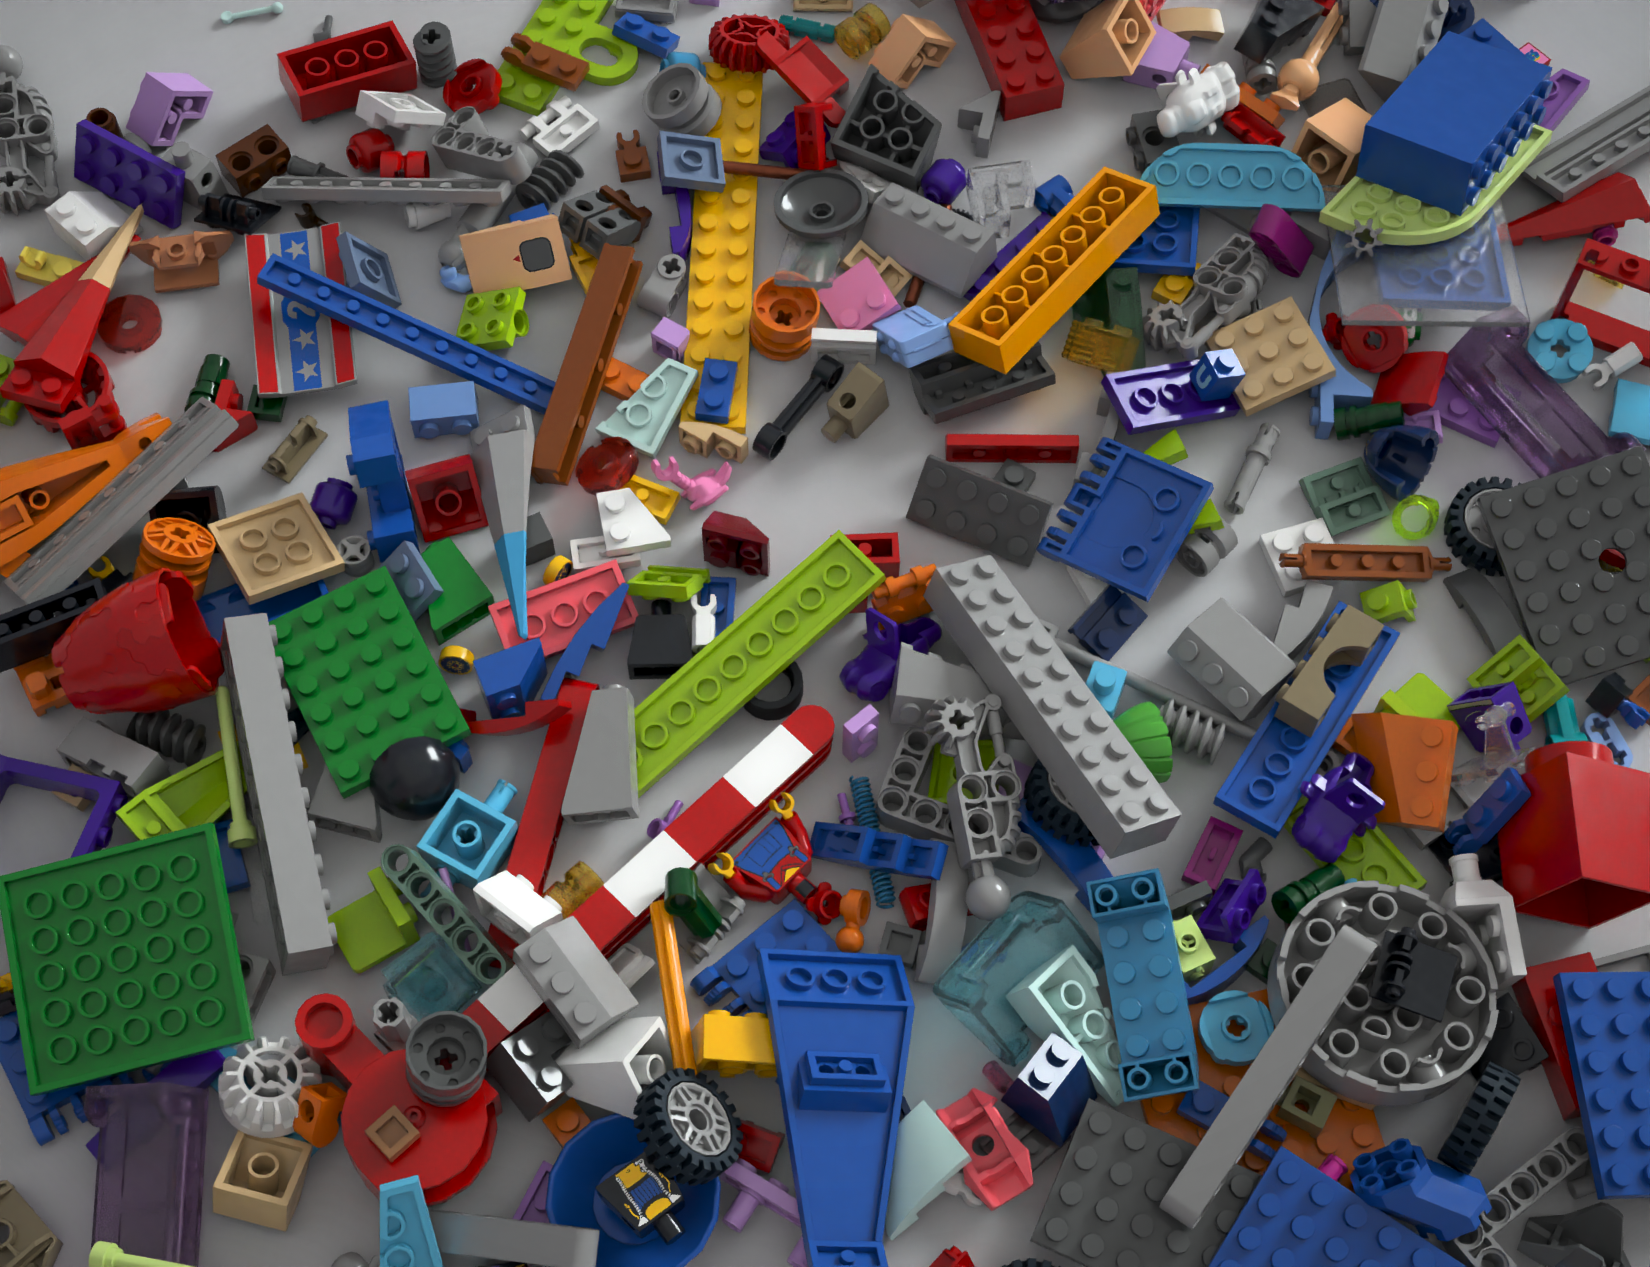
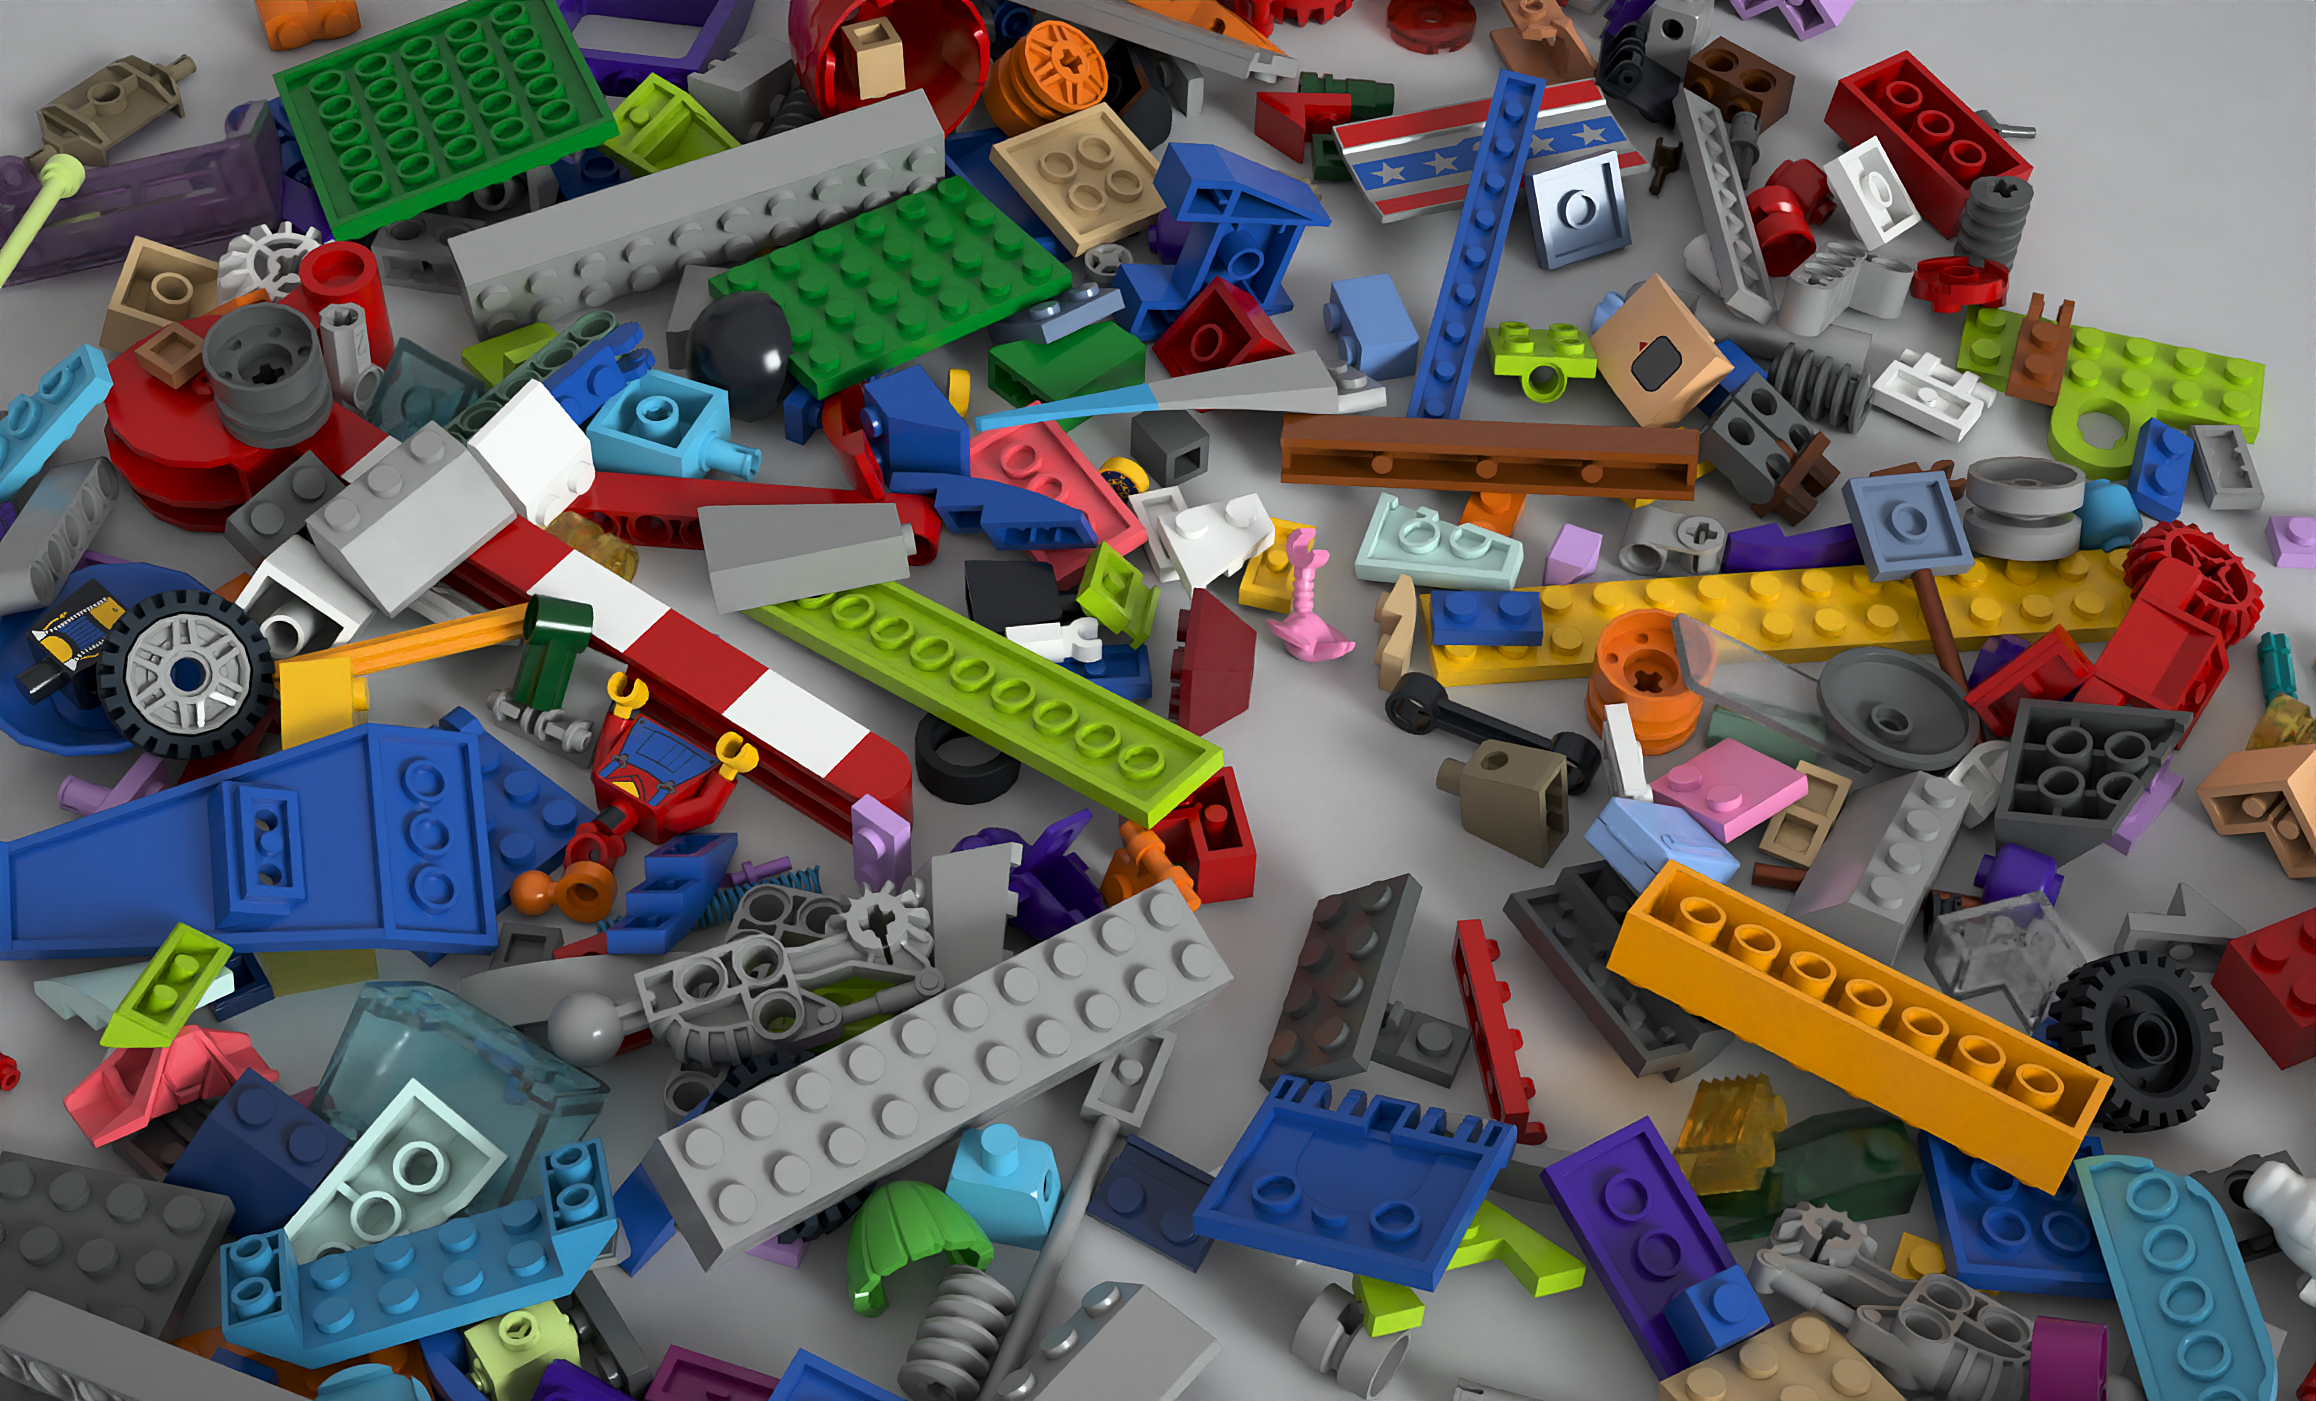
camera: 80 degrees right, 15 degrees down
(228, 17) = (1986, 37): light aqua hinge -> none
(441, 867) = (596, 376): none -> blue hinge
(623, 465) = (1318, 507): clear red tile -> none
(952, 1129) = (167, 990): none -> lime slope
(1062, 153) = (2144, 1030): none -> black wheel

